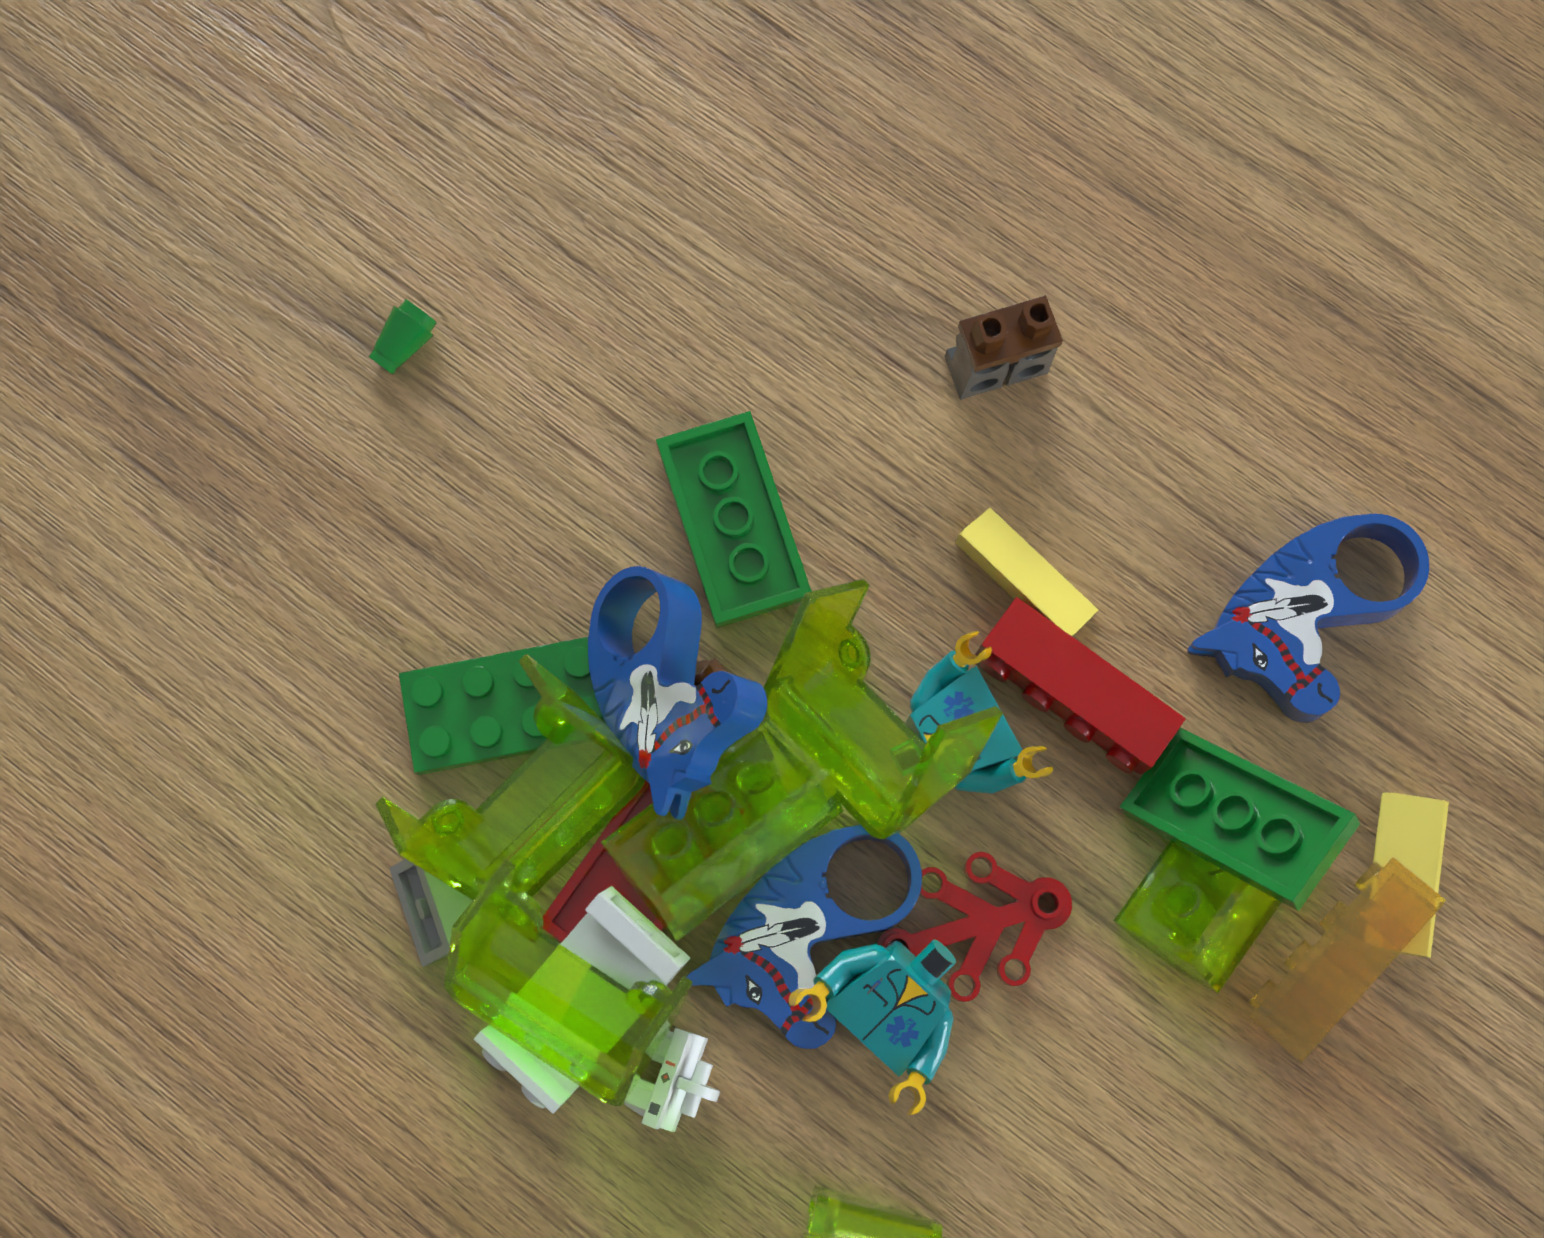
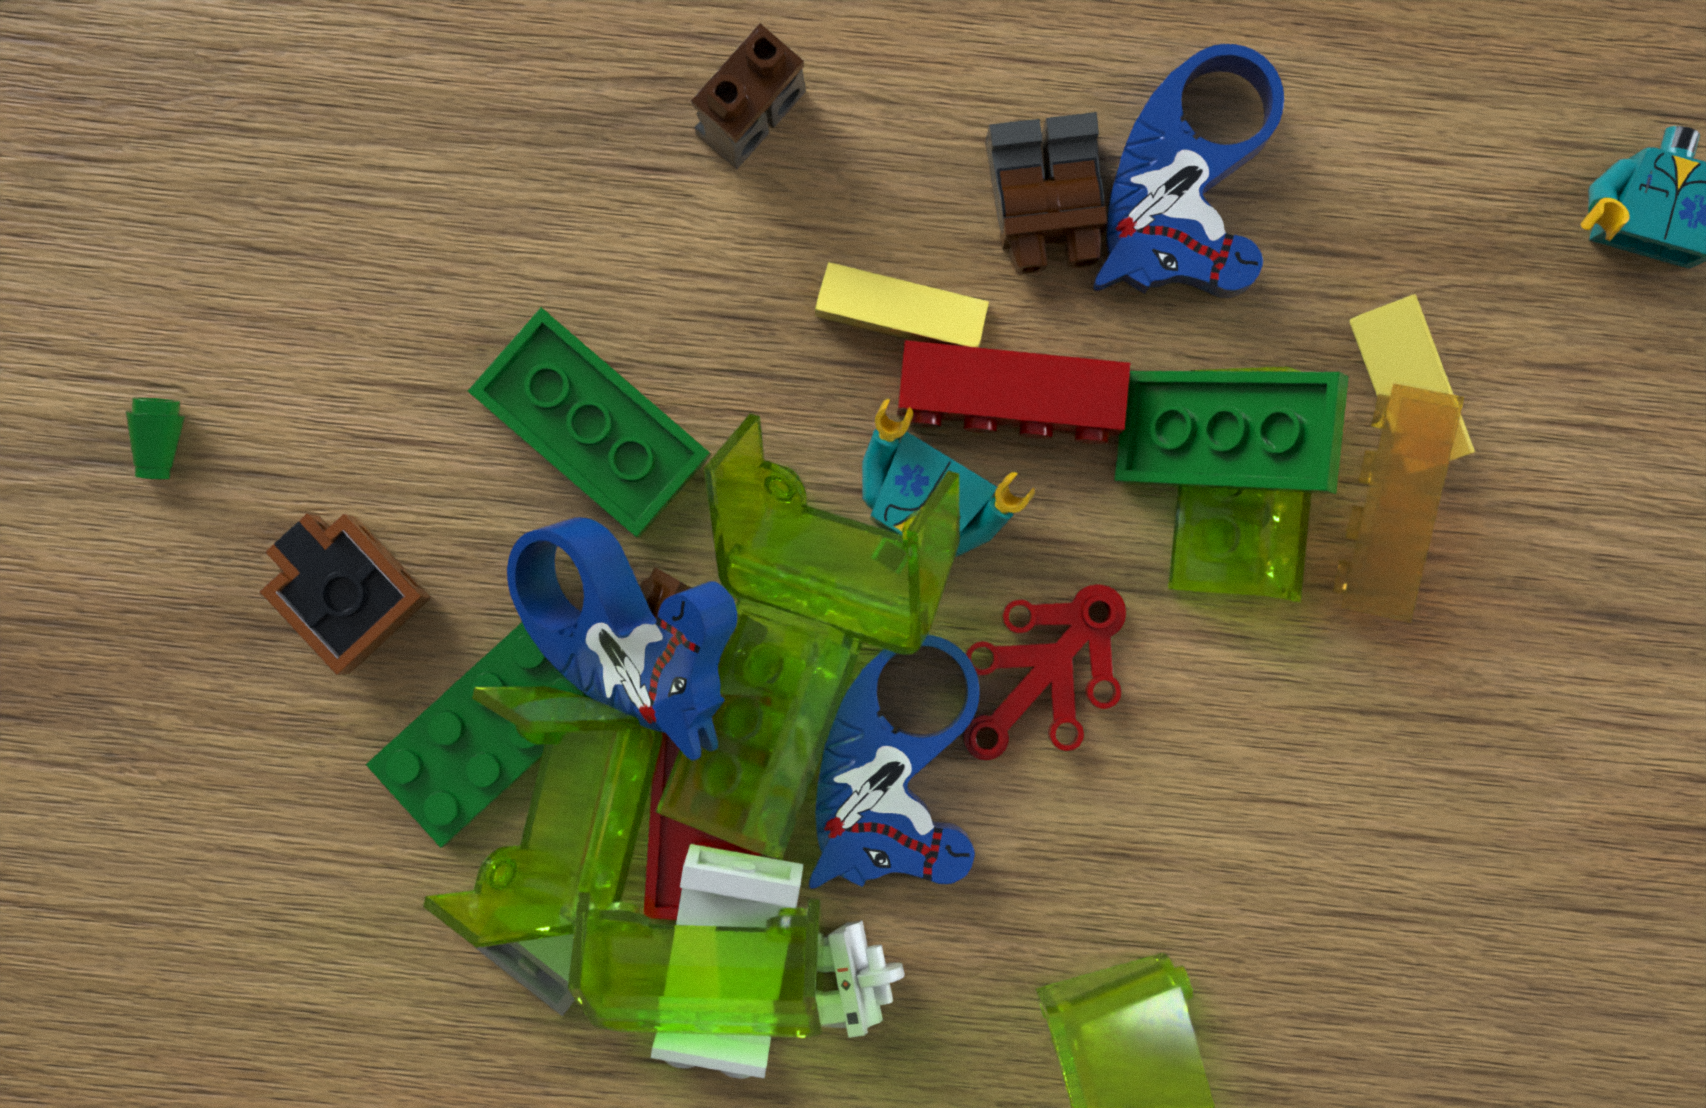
camera: 30 degrees left, 10 degrees up
(466, 529) = (340, 589): none -> piece
(891, 1007) = (1011, 796): teal torso -> none
(1193, 570) = (1053, 210): none -> reddish brown hips

